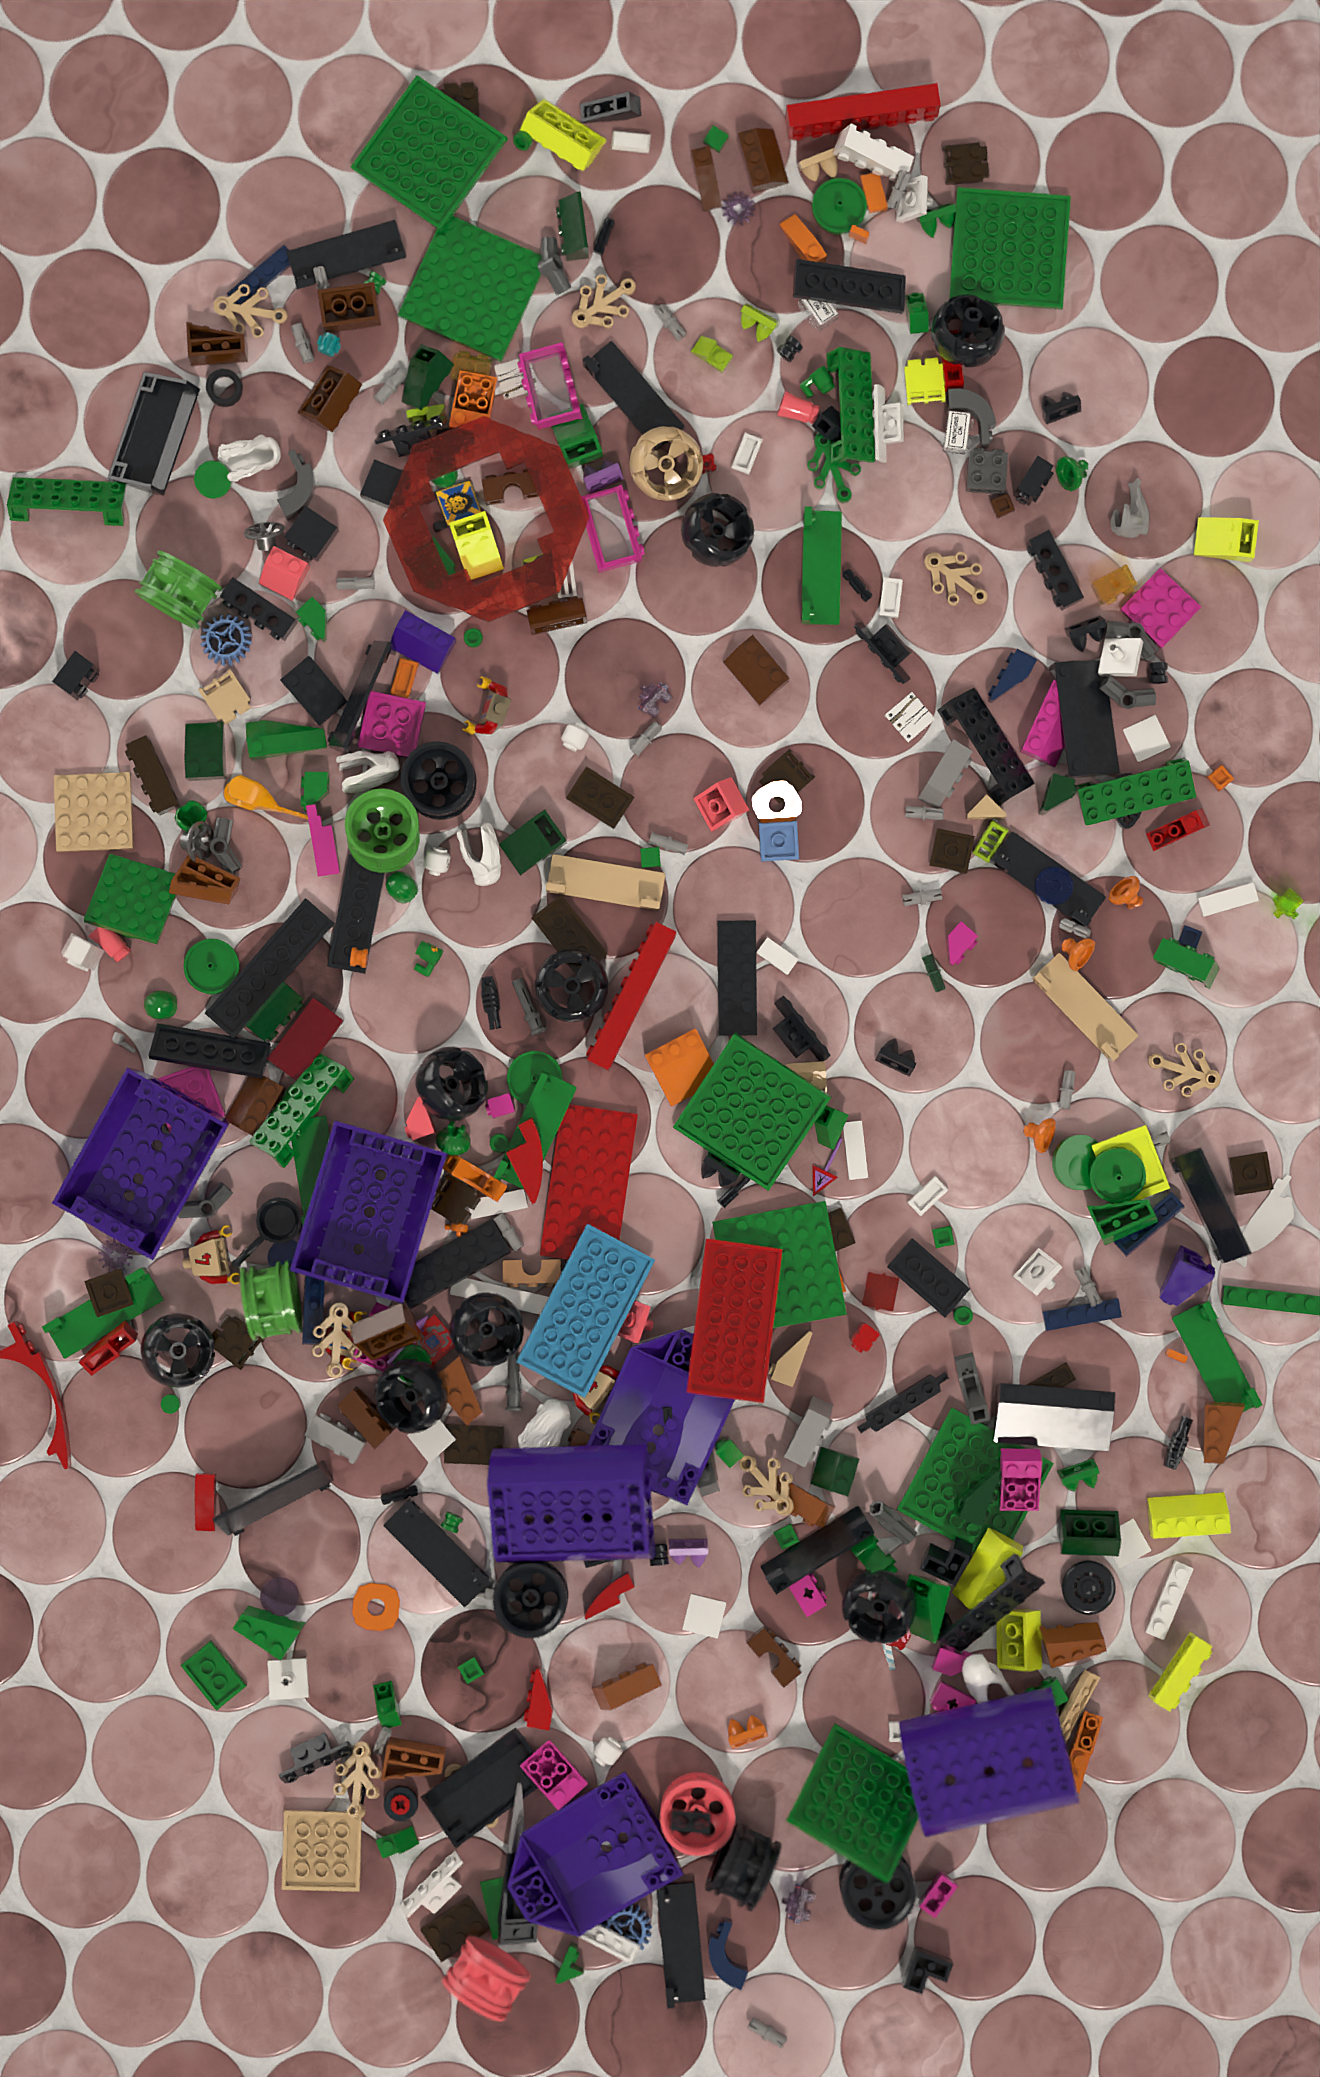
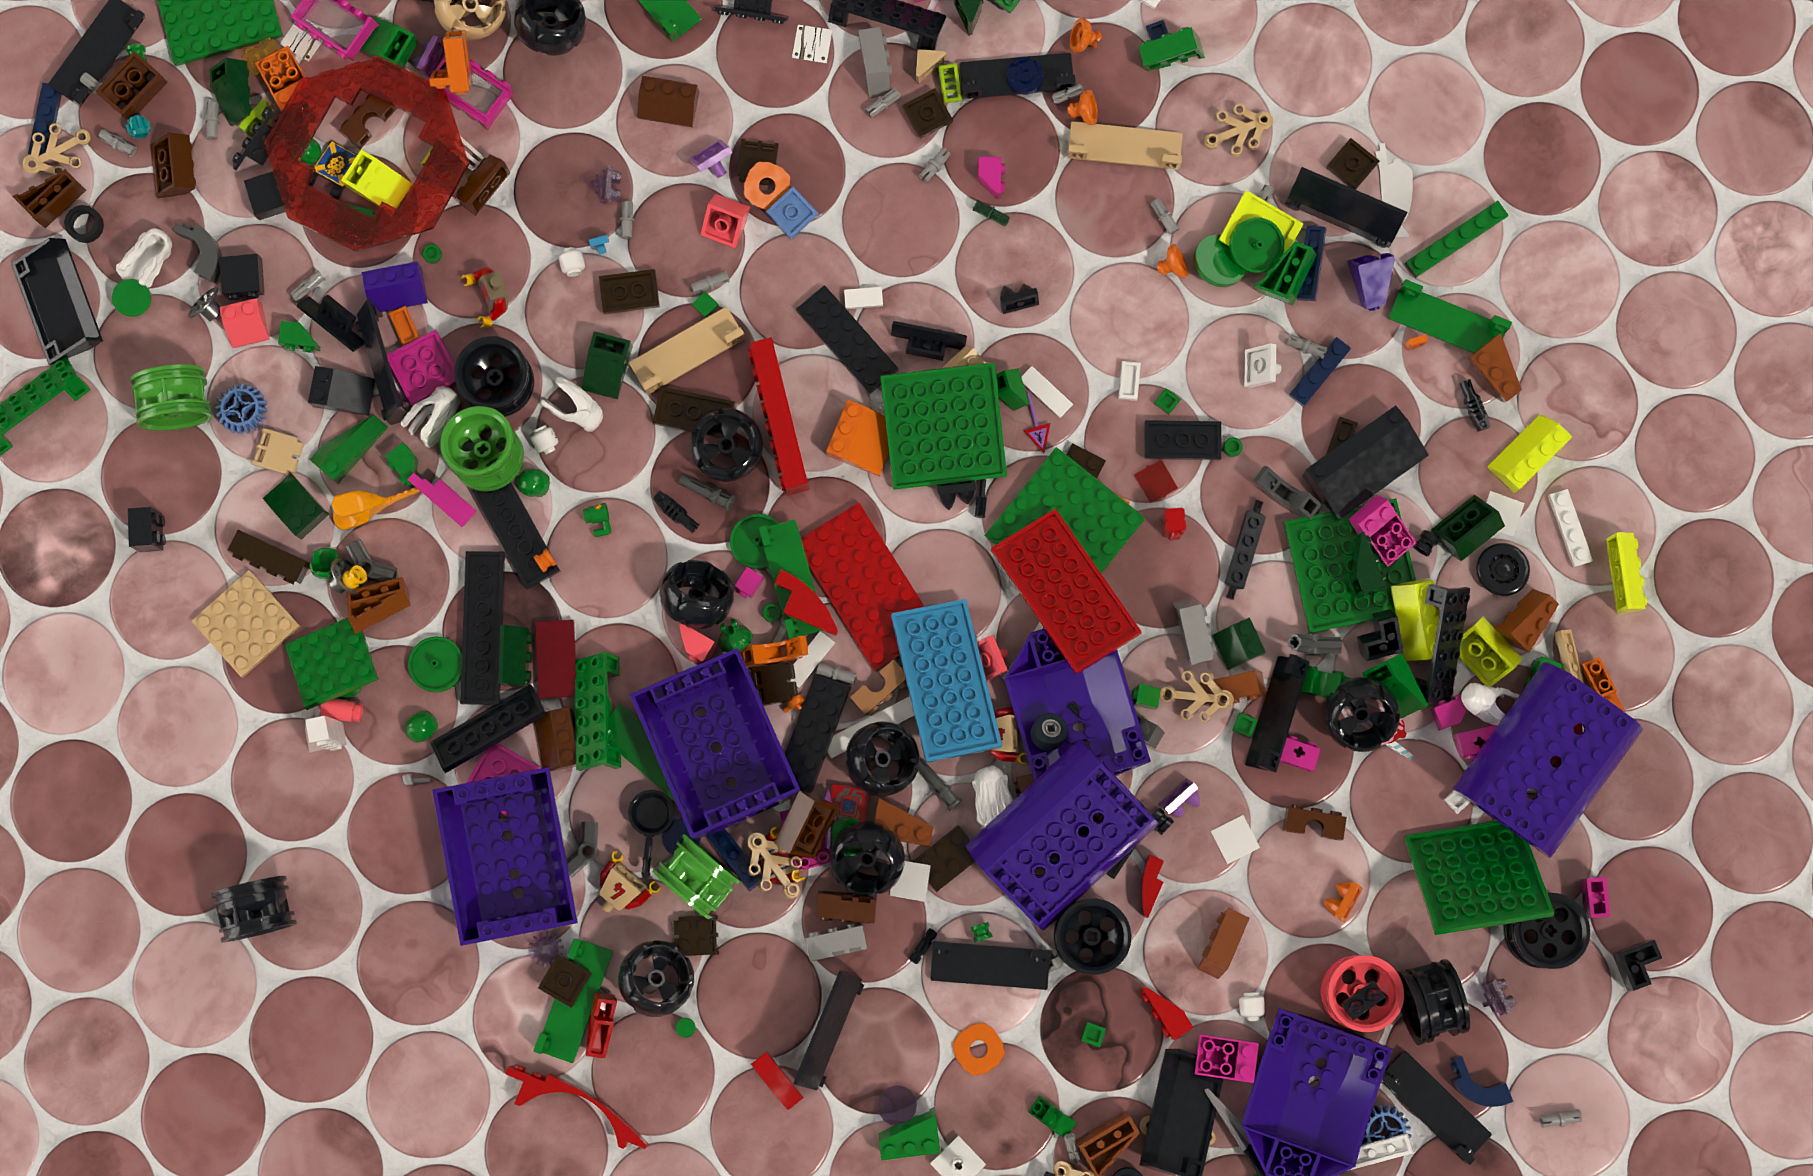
camera: 40 degrees left, 5 degrees down
(203, 848) = (354, 577): none -> yellow wheel
(236, 589) = (218, 364): black brick -> none
(353, 627) = (333, 319): none -> black bracket
(609, 738) = (599, 242): none -> dark azure tile
(610, 512) = (458, 70): none -> orange brick
(623, 1416) = (1042, 732): none -> black wheel
(752, 745) = (711, 158): none -> medium lavender tile
(789, 1363) = (1134, 593): tan slope -> none
(1046, 1517) = (1426, 543): none -> black wheel
(1085, 1471) = (1424, 484): green tile -> none

